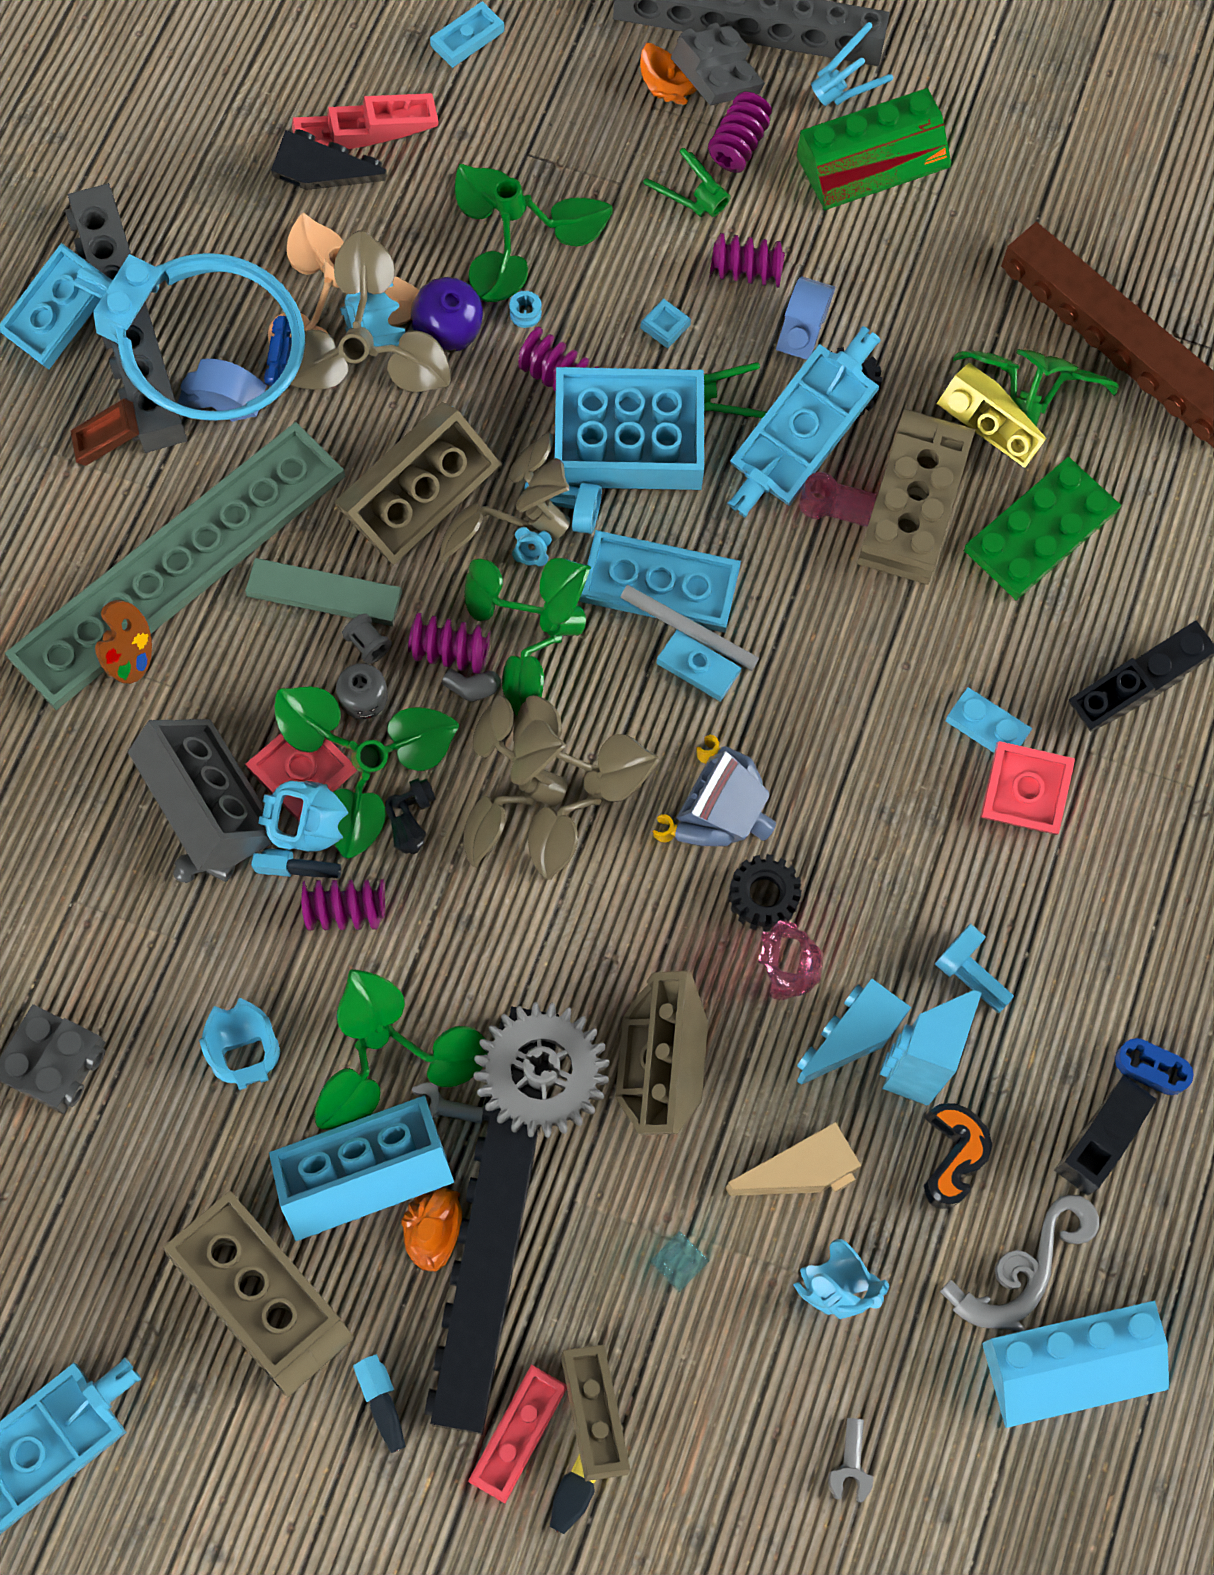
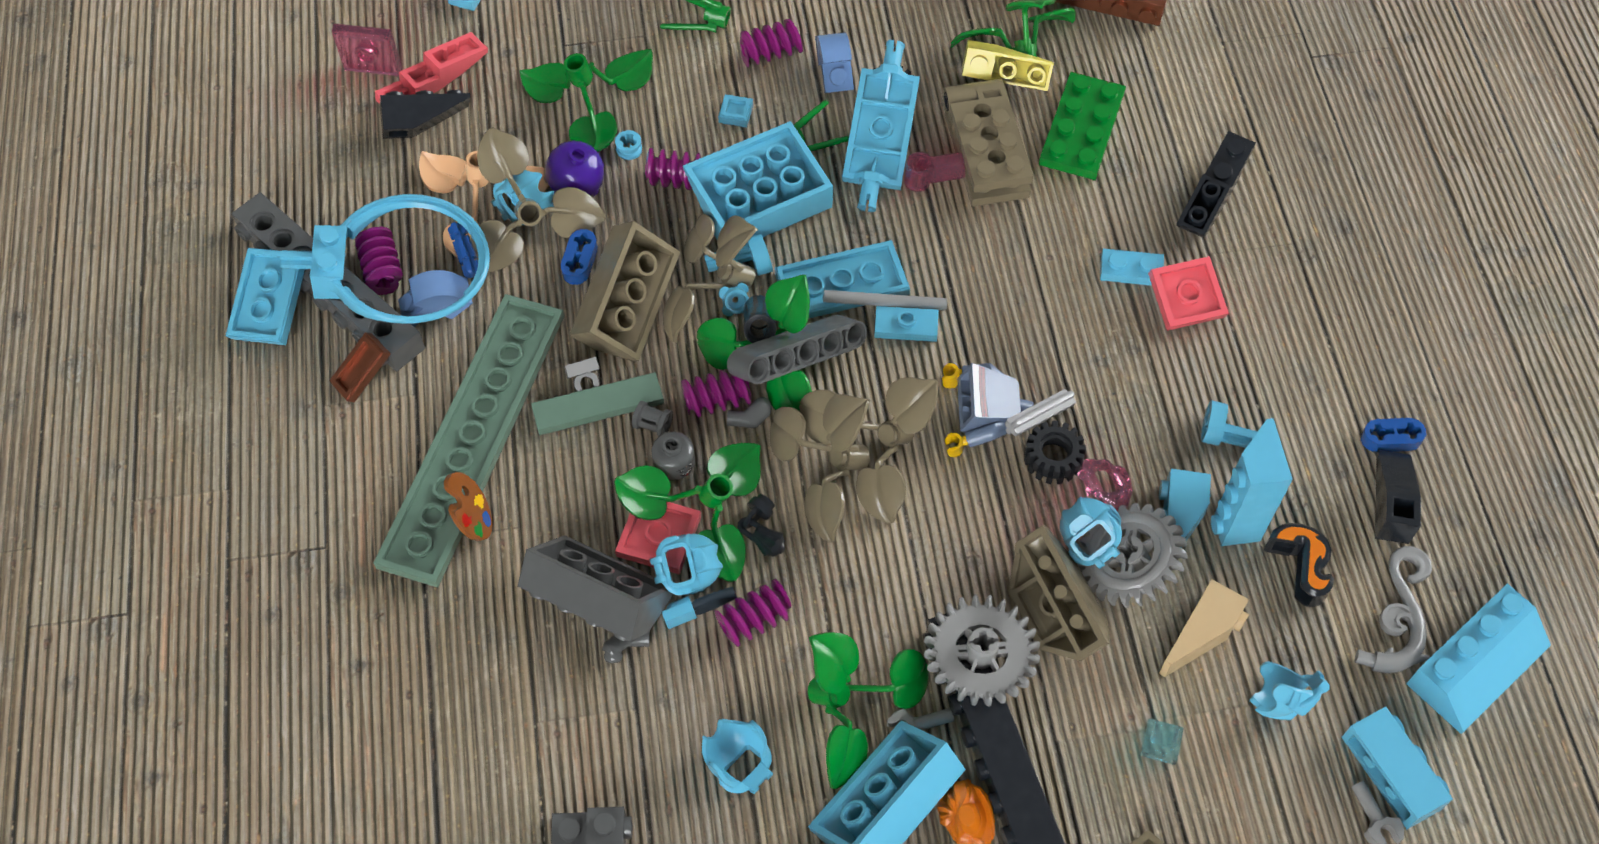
camera: 25 degrees left, 10 degrees down
(189, 319) = (379, 260): none -> magenta piece
(306, 65) = (367, 49): none -> clear pink plate
(326, 546) = (582, 369): none -> light grey tile
(395, 412) = (573, 255): none -> blue beam
(523, 593) = (757, 322): none -> black pin
(537, 641) = (795, 351): none -> dark grey beam
(735, 984) = (1083, 517): none -> medium azure helmet
(773, 841) = (1040, 412): none -> light grey axle
(782, 1065) = (1139, 571): none -> light grey gear
(906, 1425) = (1397, 767): none -> medium azure brick

